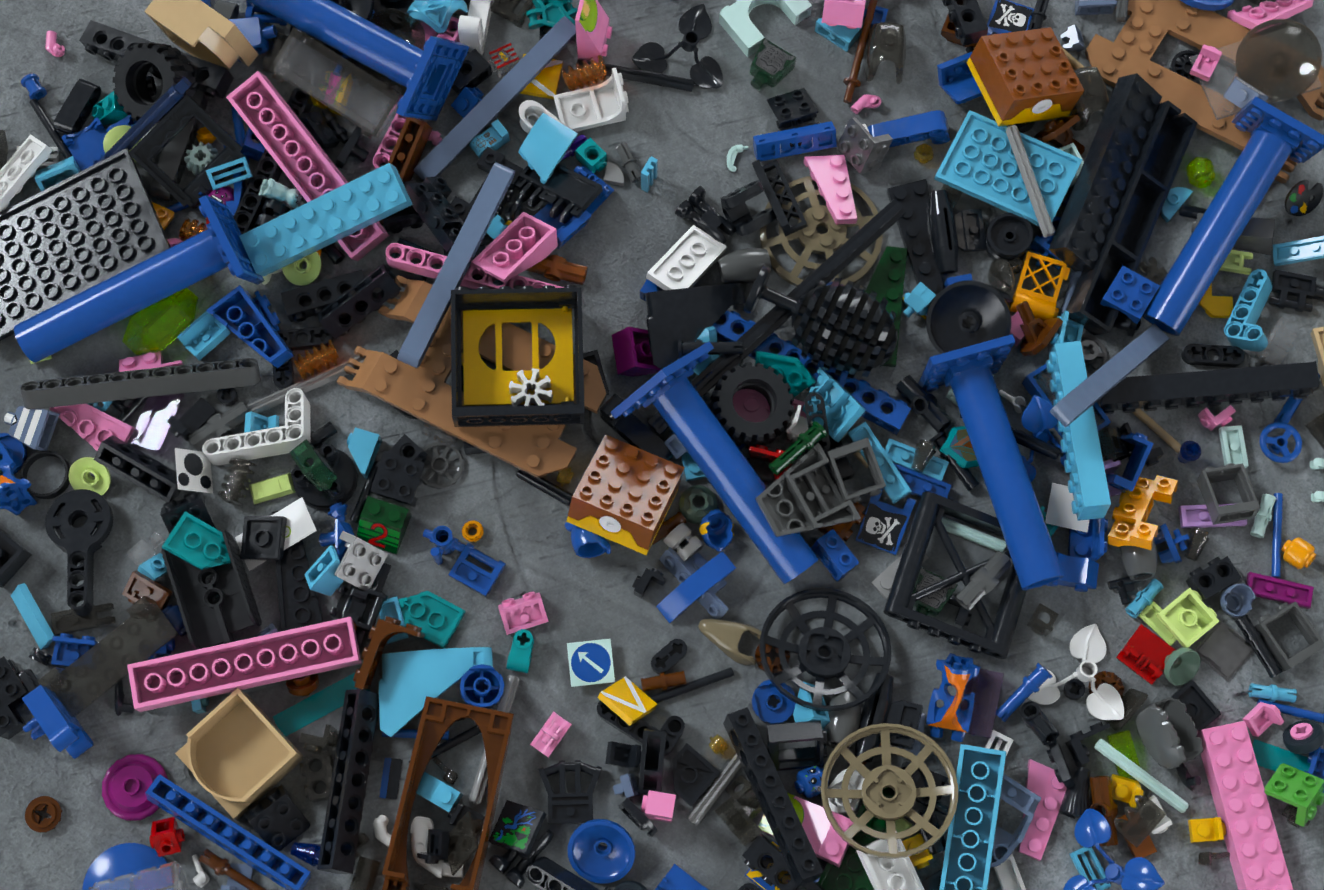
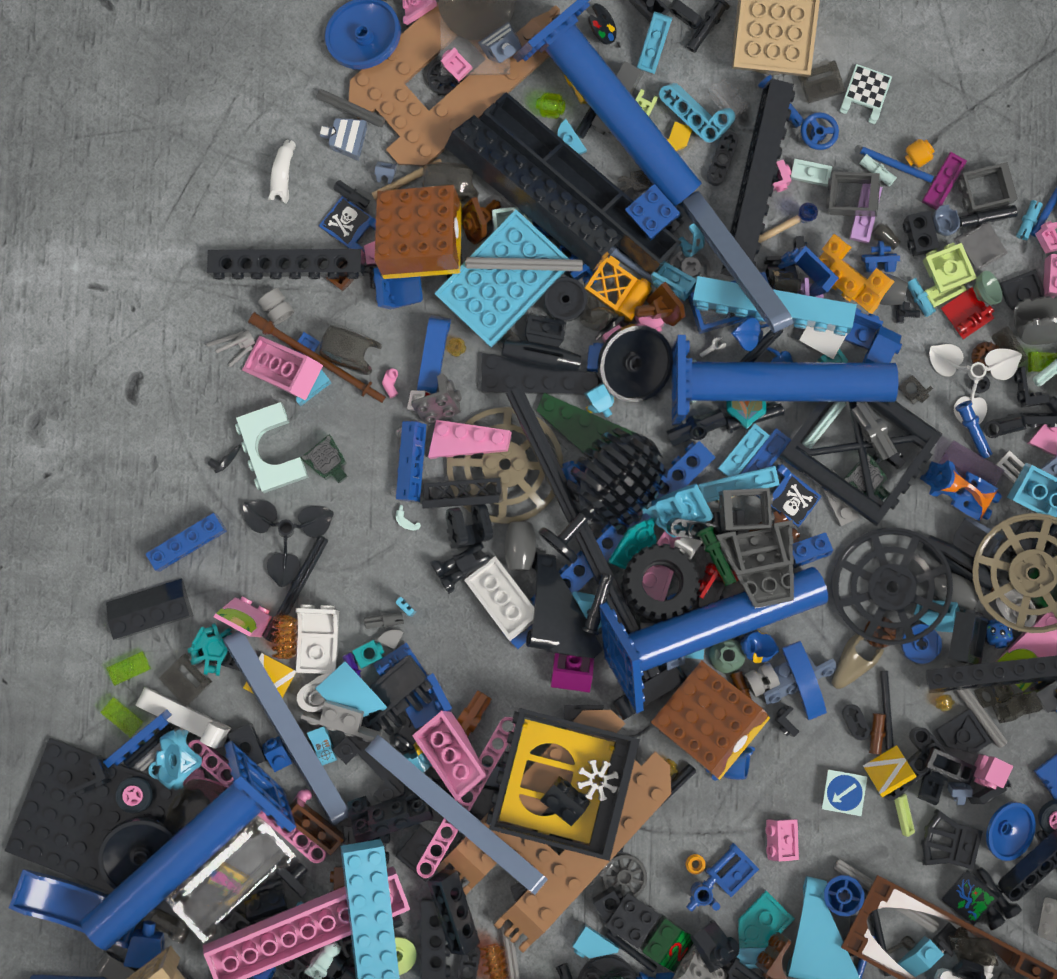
camera: 75 degrees left, 10 degrees up
(393, 568) = (715, 946): none -> black slope
(500, 366) = (565, 801): none -> black bracket
(503, 60) = (245, 709): clear brick -> none
(520, 142) = (341, 718): none -> light grey bracket
(520, 656) = (819, 851): teal piece -> none
(551, 734) = (898, 845): bright pink hips -> none
(585, 734) = (904, 815): none -> yellowish green tile
(792, 107) = (374, 452): black hinge -> none
(923, 454) = (743, 443): clear smoke cone -> none
(1111, 340) = (696, 235): none -> medium azure helmet
(1292, 284) = (679, 63): black plate -> none

